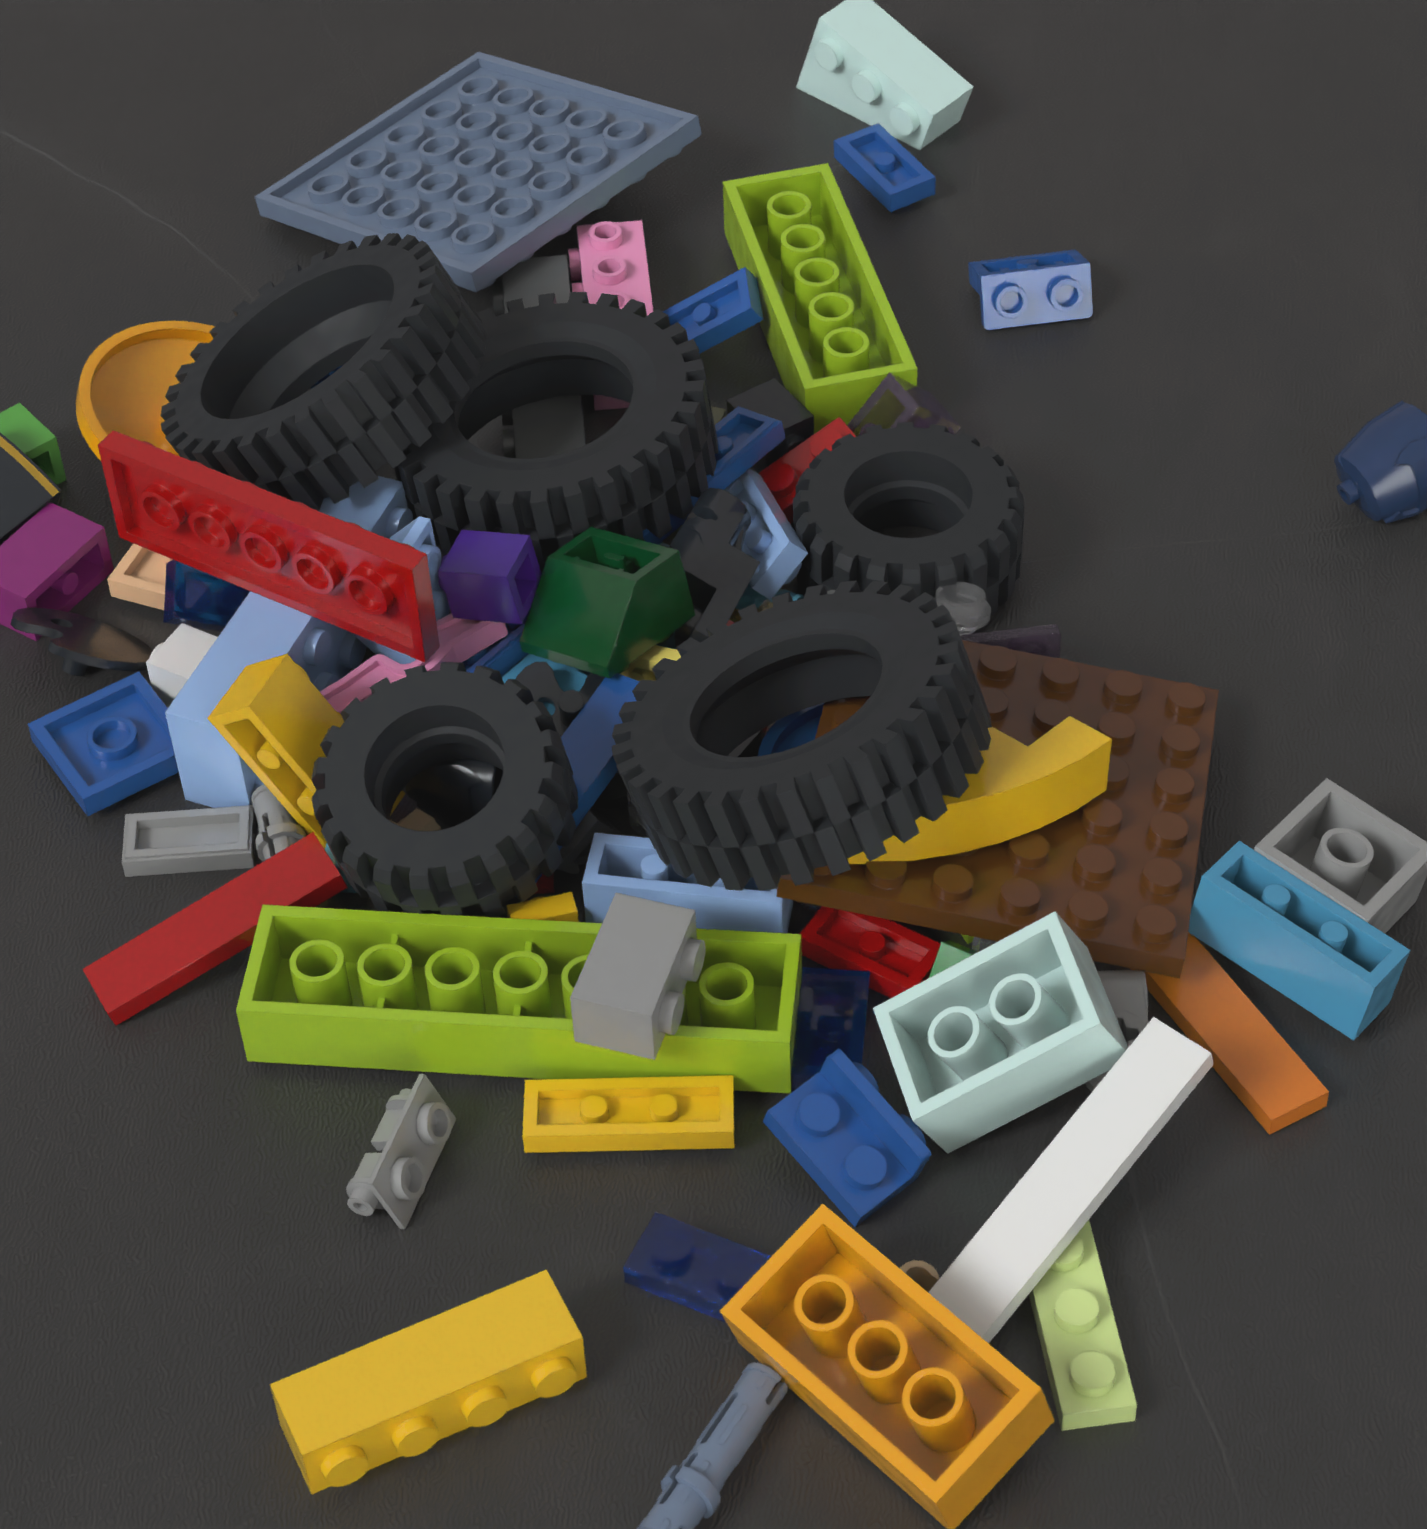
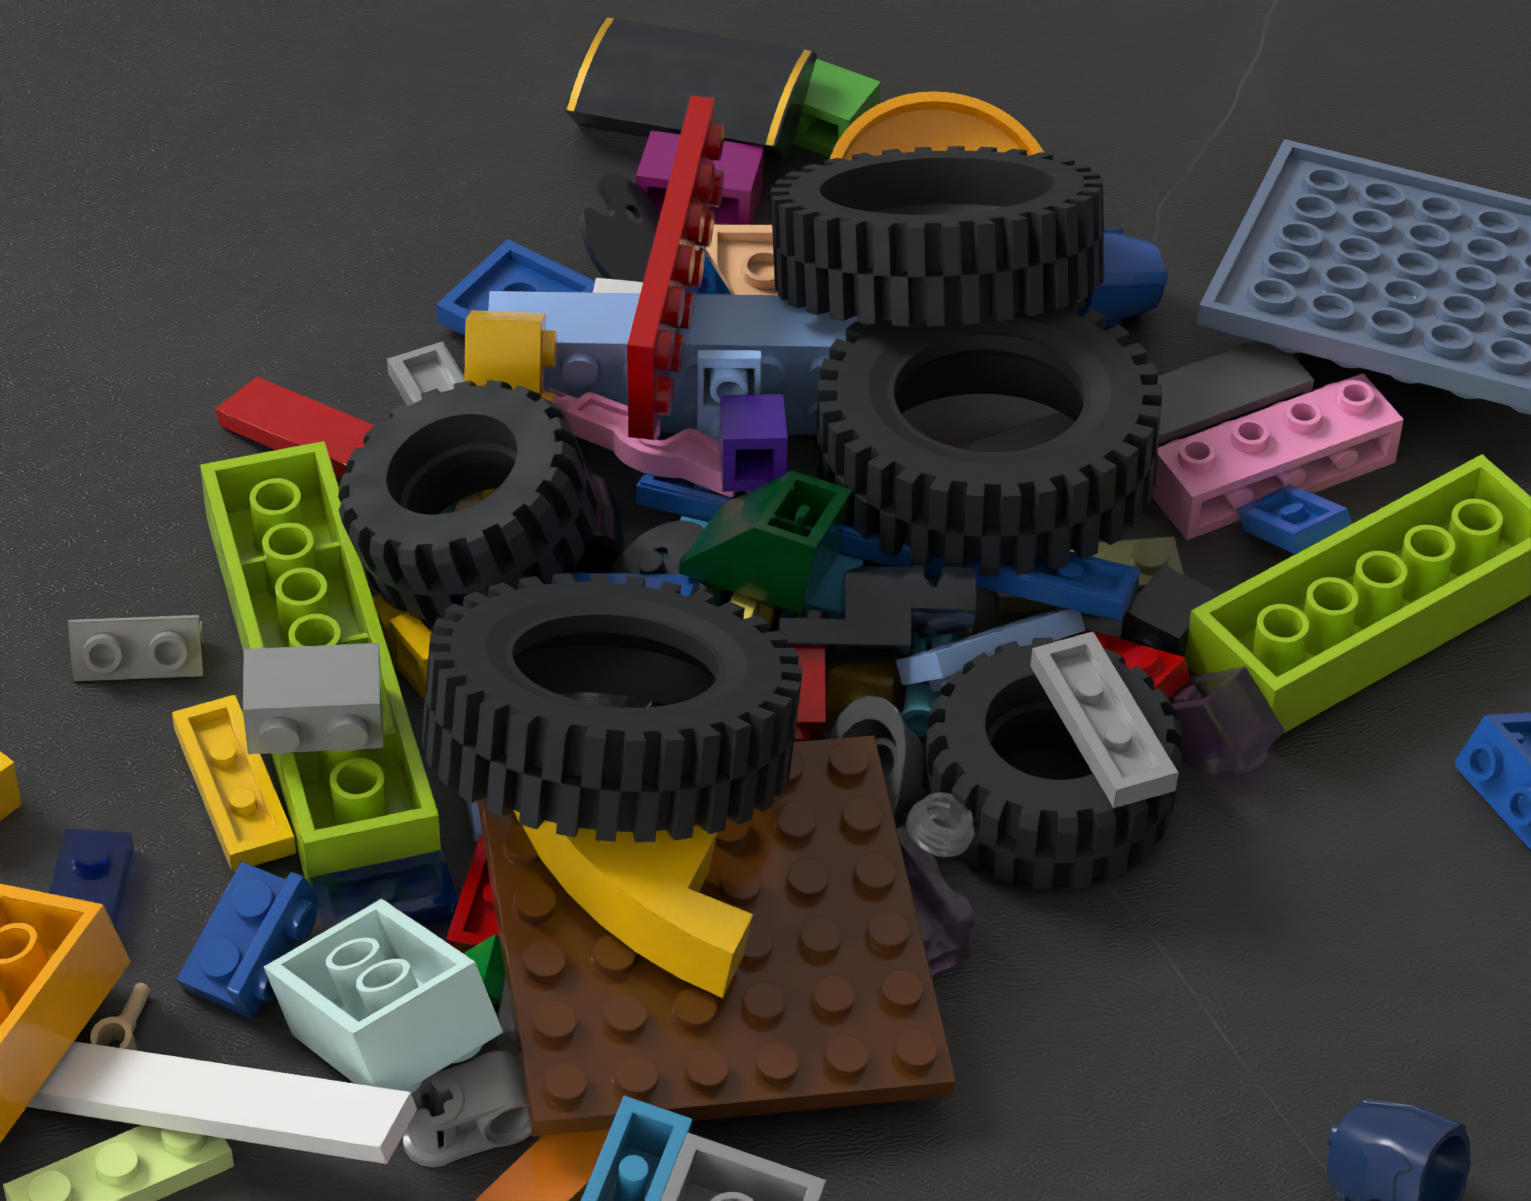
camera: 65 degrees right, 0 degrees up
(926, 457) = (1104, 720): none -> light grey plate

